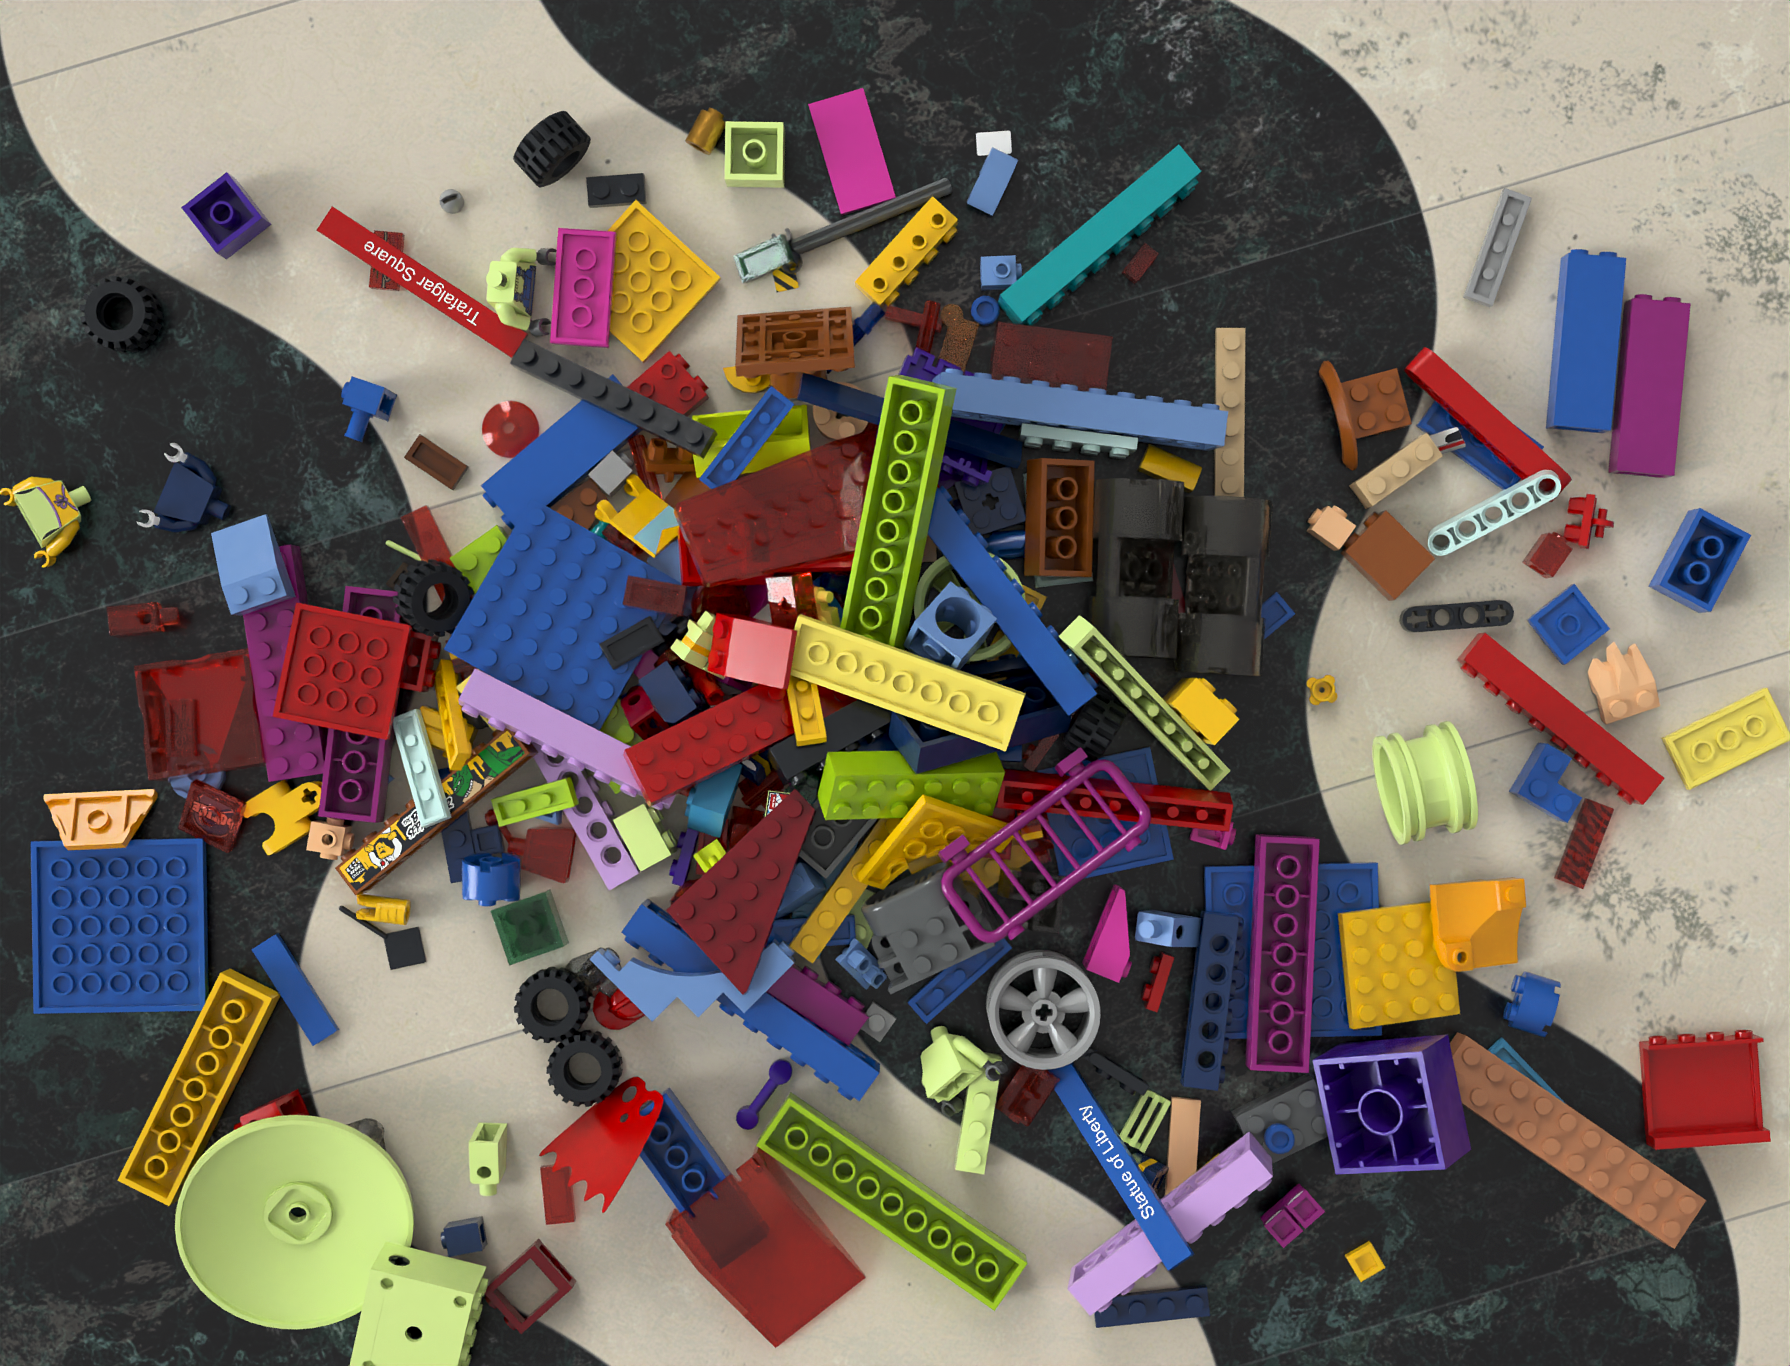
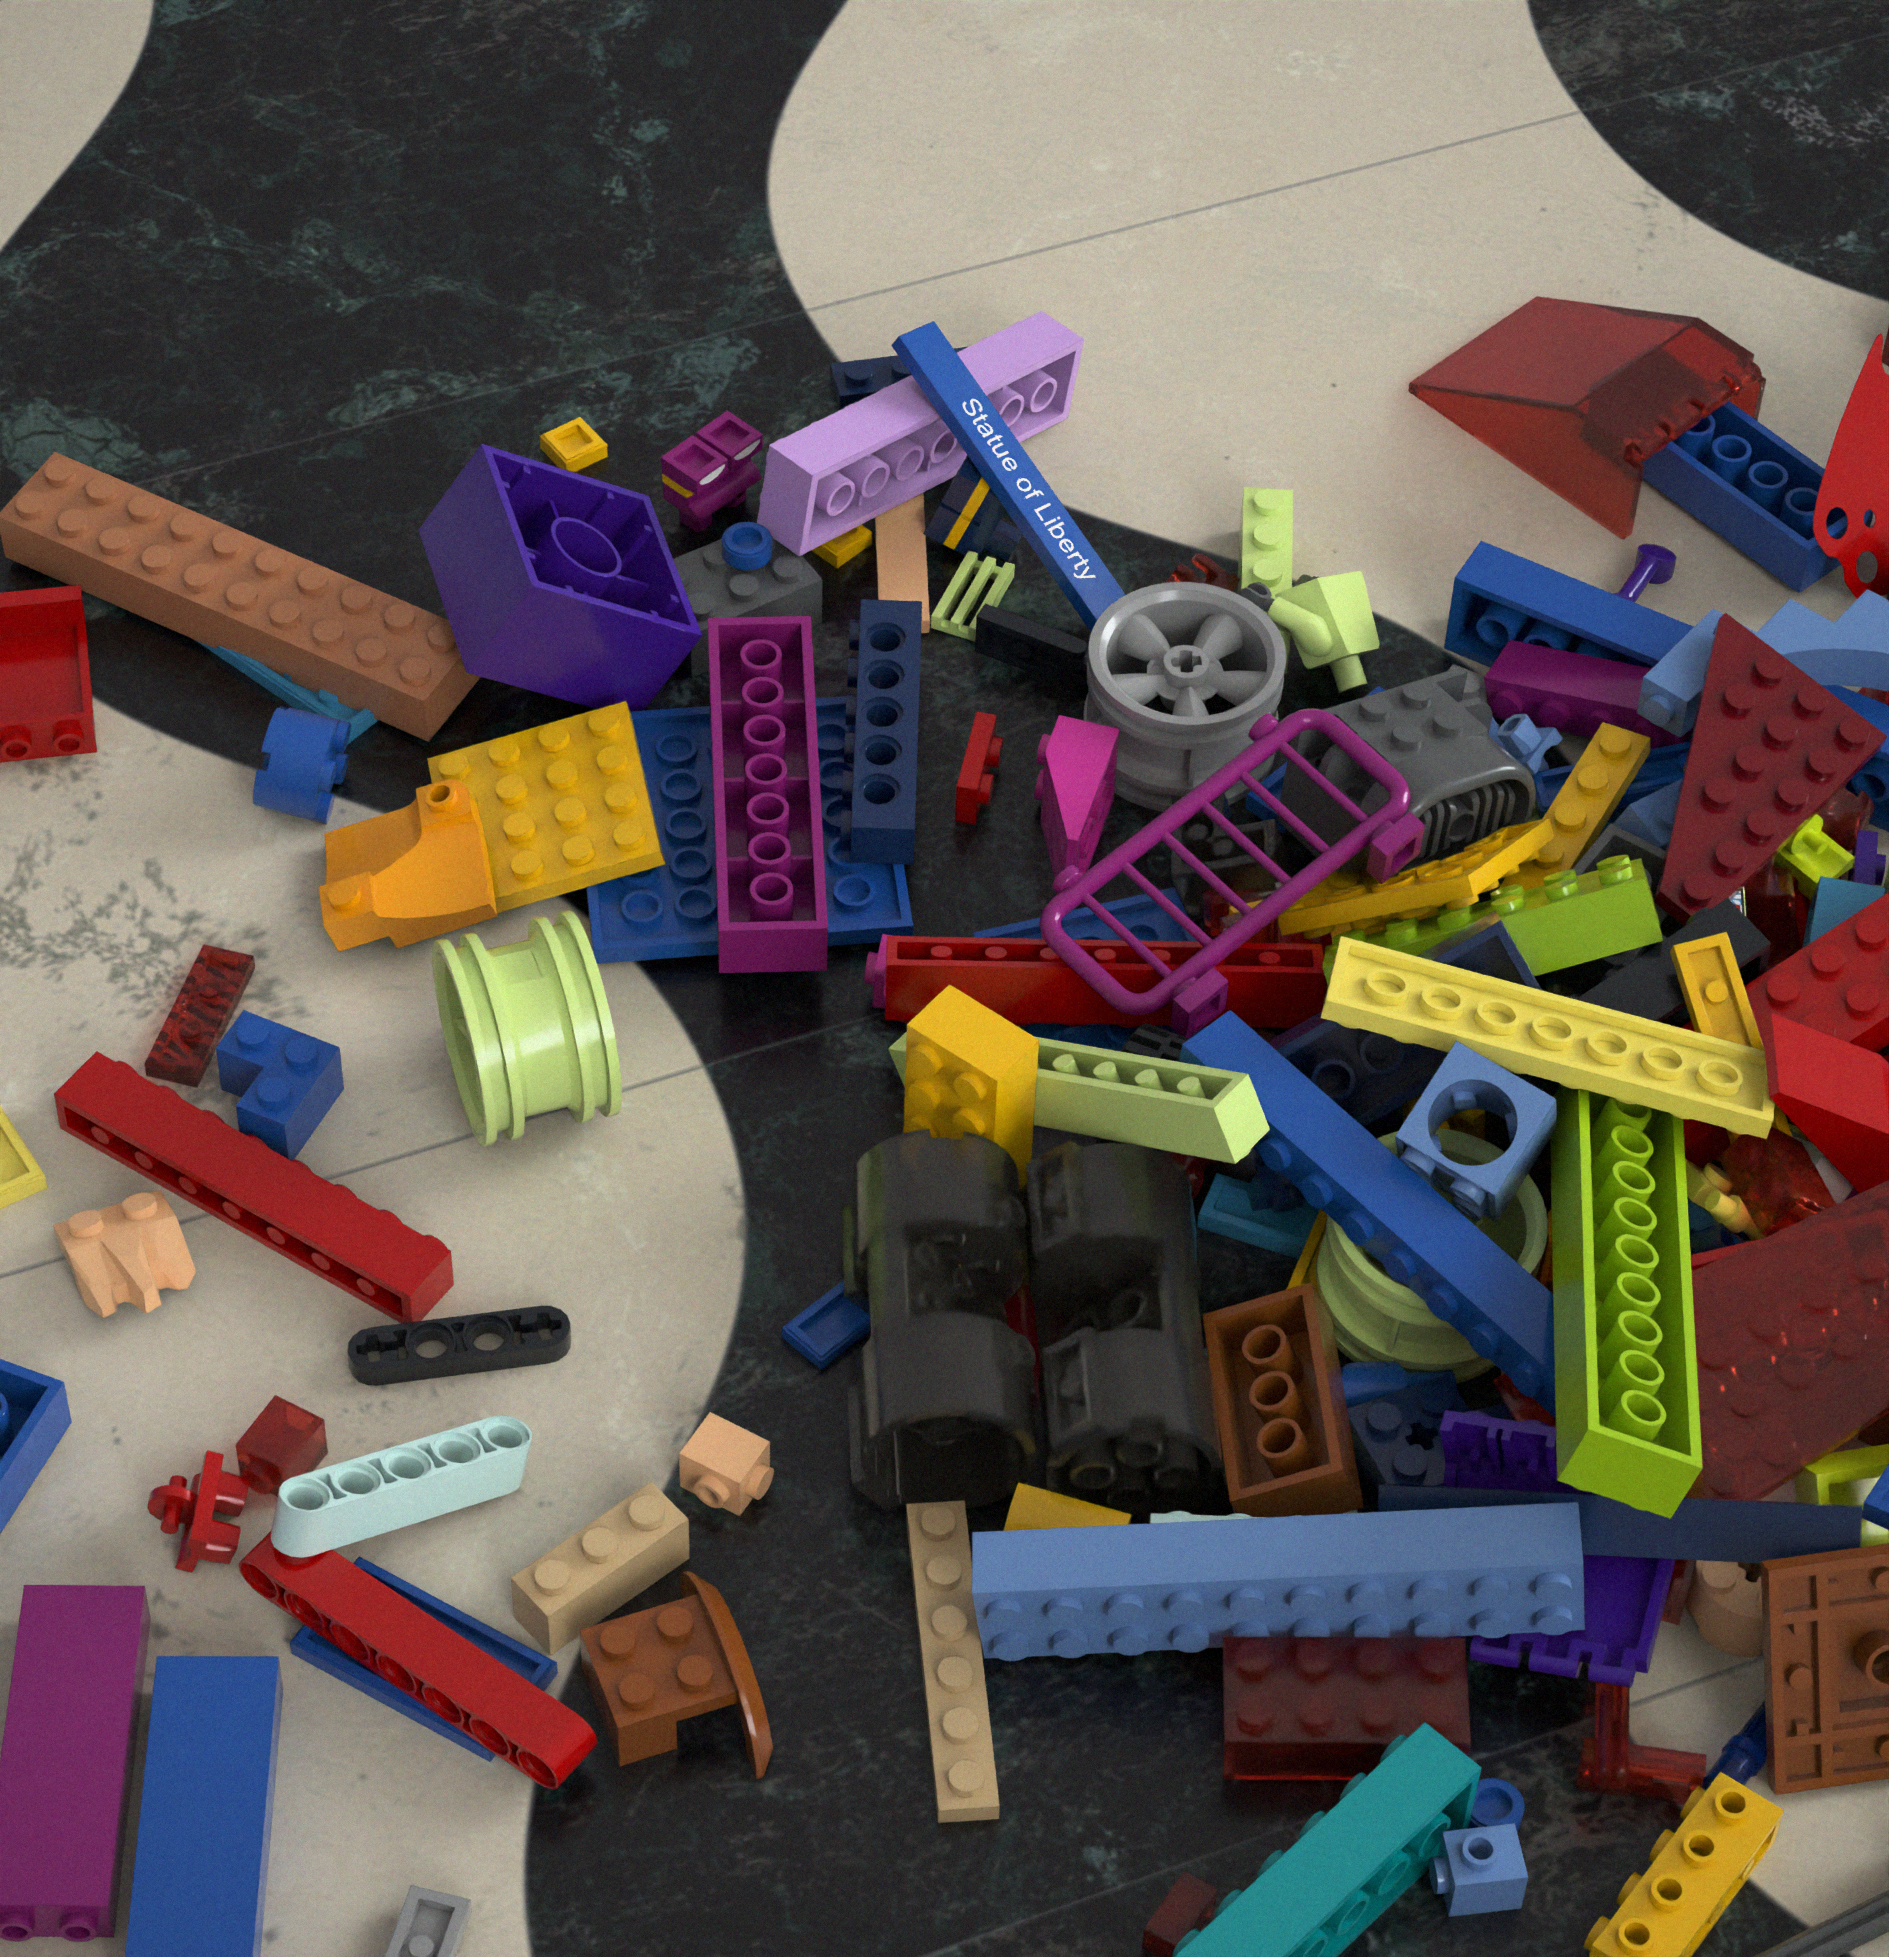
camera: 175 degrees right, 40 degrees down
(892, 1201) = (1388, 457): lime brick -> none
(959, 336) = (1540, 1742): clear orange hinge -> none
(1161, 928) = (979, 816): medium blue torso -> none
(1329, 693) = (712, 1198): yellow plate -> none
(1386, 554) = (607, 1424): dark orange brick -> none
(1448, 440) = (498, 1631): sticker -> none
(1568, 624) = (236, 1342): blue plate -> none

